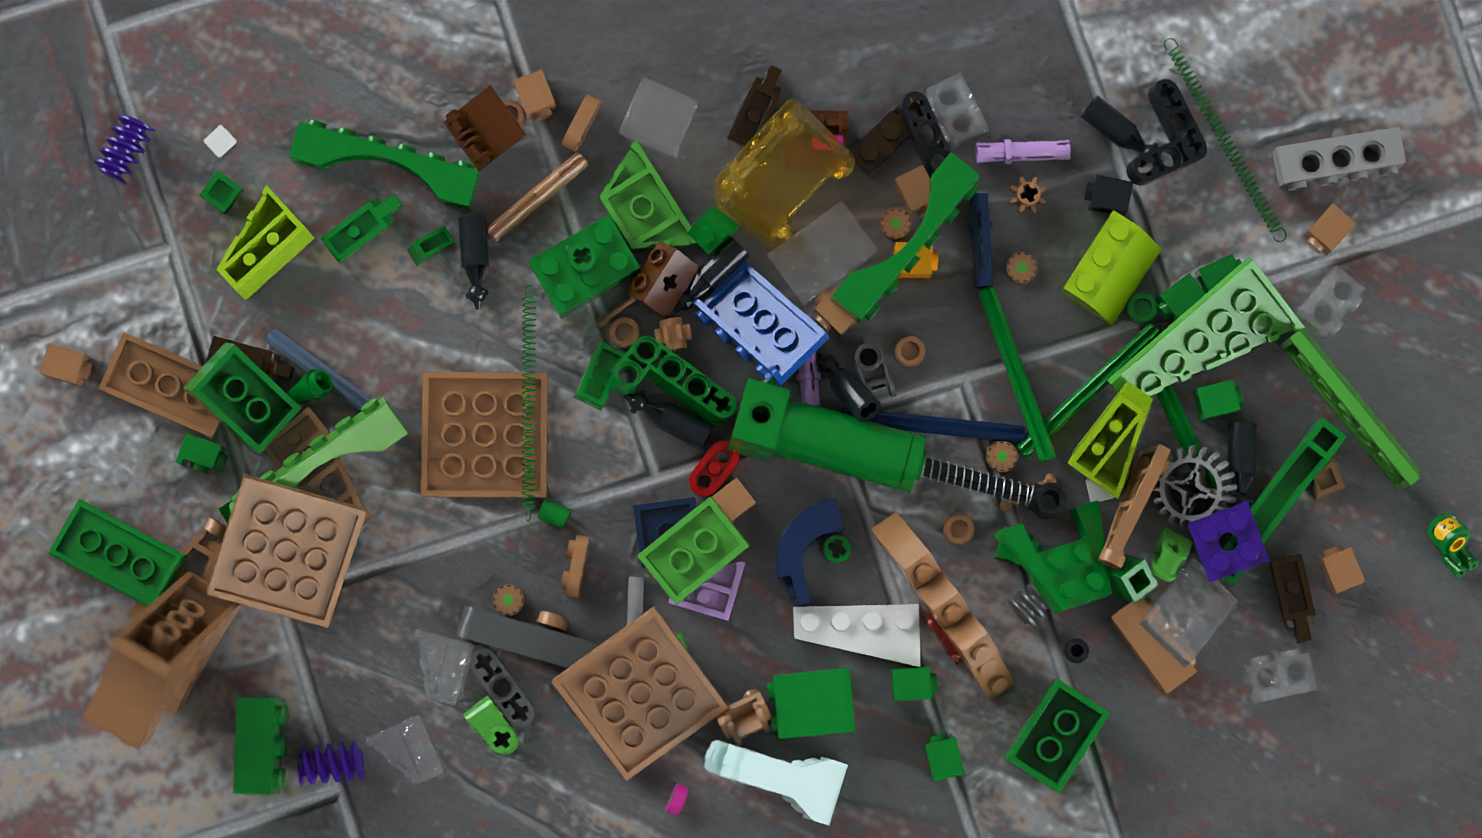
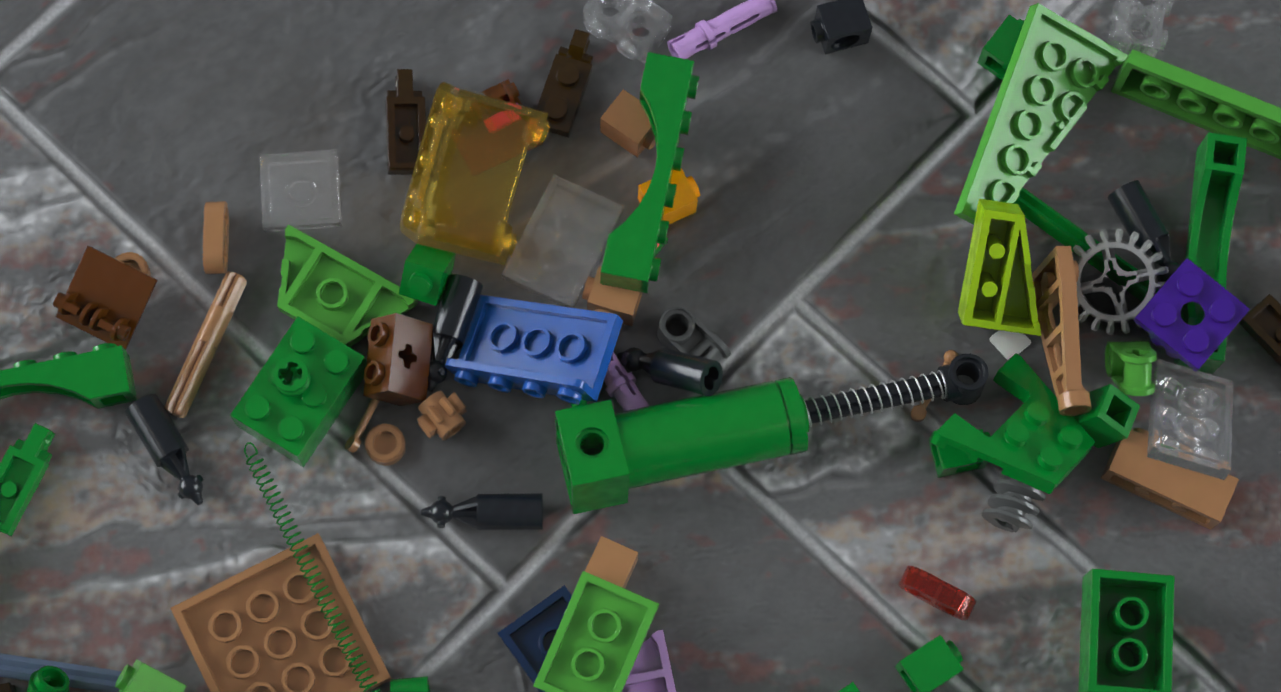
camera: 30 degrees left, 10 degrees down
(430, 245) = (107, 462): green piece -> none
(535, 96) = (147, 233): medium nougat brick -> none
(595, 383) = (382, 505): green plate -> none
(675, 386) = (475, 471): green beam -> none
(713, 469) = (568, 544): red plate -> none
(802, 531) = (714, 546): dark blue arch -> none
(845, 545) = (766, 550): green bush -> none
(870, 630) = (846, 632): white wing -> none
(895, 224) = (626, 171): medium nougat tile -> none
(909, 351) = (718, 300): medium nougat tile -> none
(925, 150) = (615, 75): black beam -> none
(944, 604) = (919, 549): medium nougat arch -> none
(949, 426) = (813, 355): dark blue axle -> none
(958, 529) = (881, 466): medium nougat tile -> none
(979, 203) = (706, 104): dark blue pin -> none
(1001, 456) = (884, 361): medium nougat tile -> none
(1017, 374) = (852, 262): green axle -> none
(1021, 268) = (790, 149): medium nougat tile -> none
(1031, 187) = (751, 59): medium nougat gear -> none
(1084, 650) = (1100, 529): black pin -> none
(1091, 387) = (936, 244): green axle -> none
(1111, 268) = (887, 98): lime slope -> none
(1142, 308) = (943, 125): green tile -> none
(1179, 298) = (979, 92): green brick -> none
(1217, 400) = (1082, 178): green brick -> none
(1327, 480) = (1249, 205): medium nougat tile -> none

